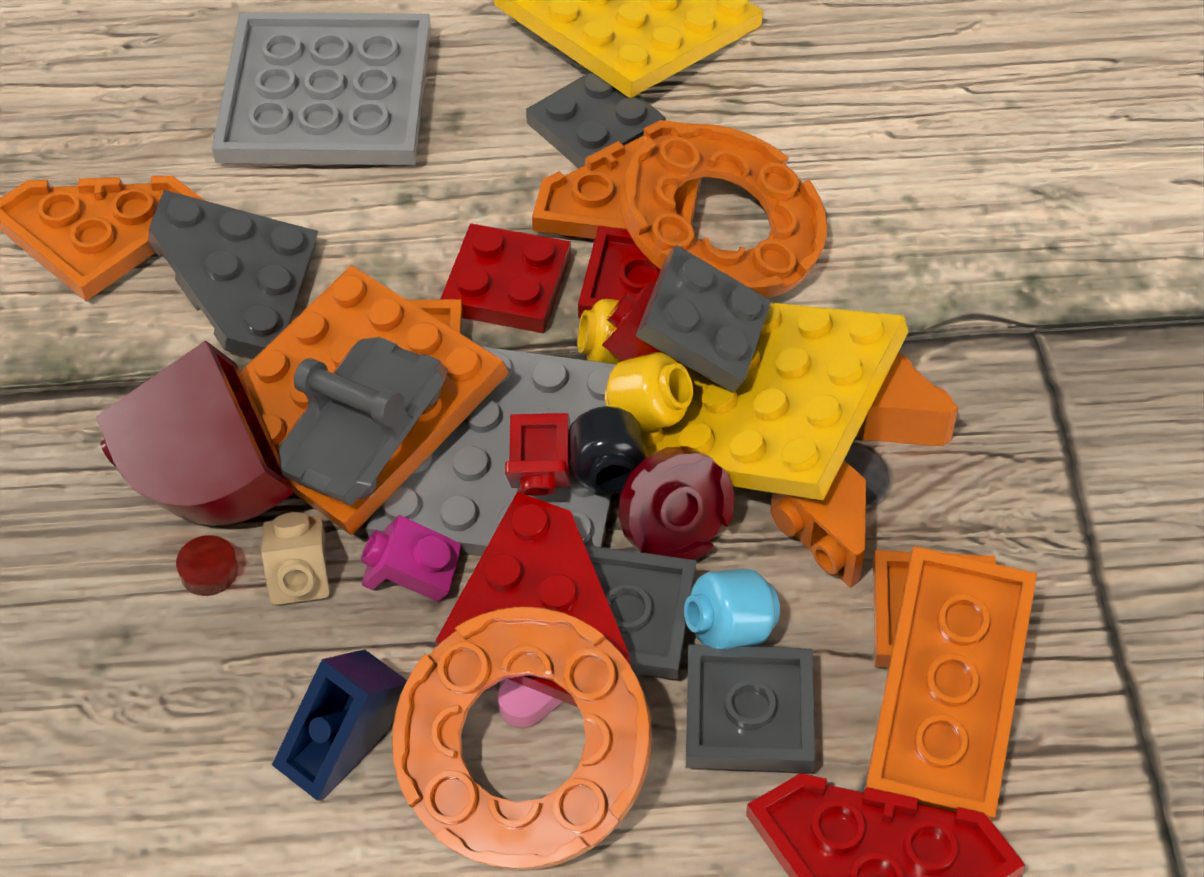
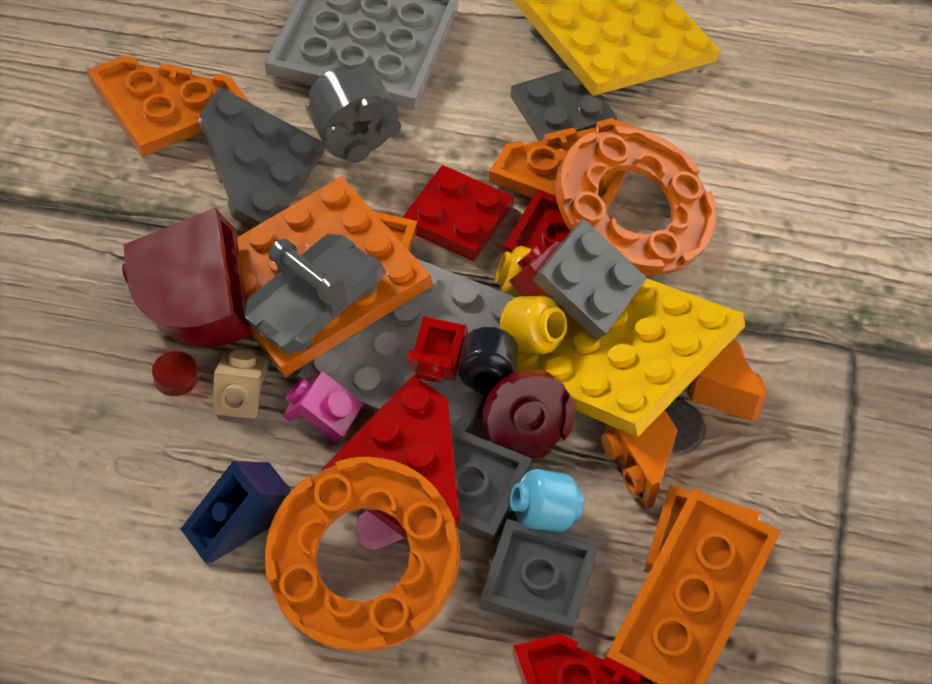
camera: 10 degrees right, 0 degrees up
(341, 183) = (352, 112): none -> dark grey brick

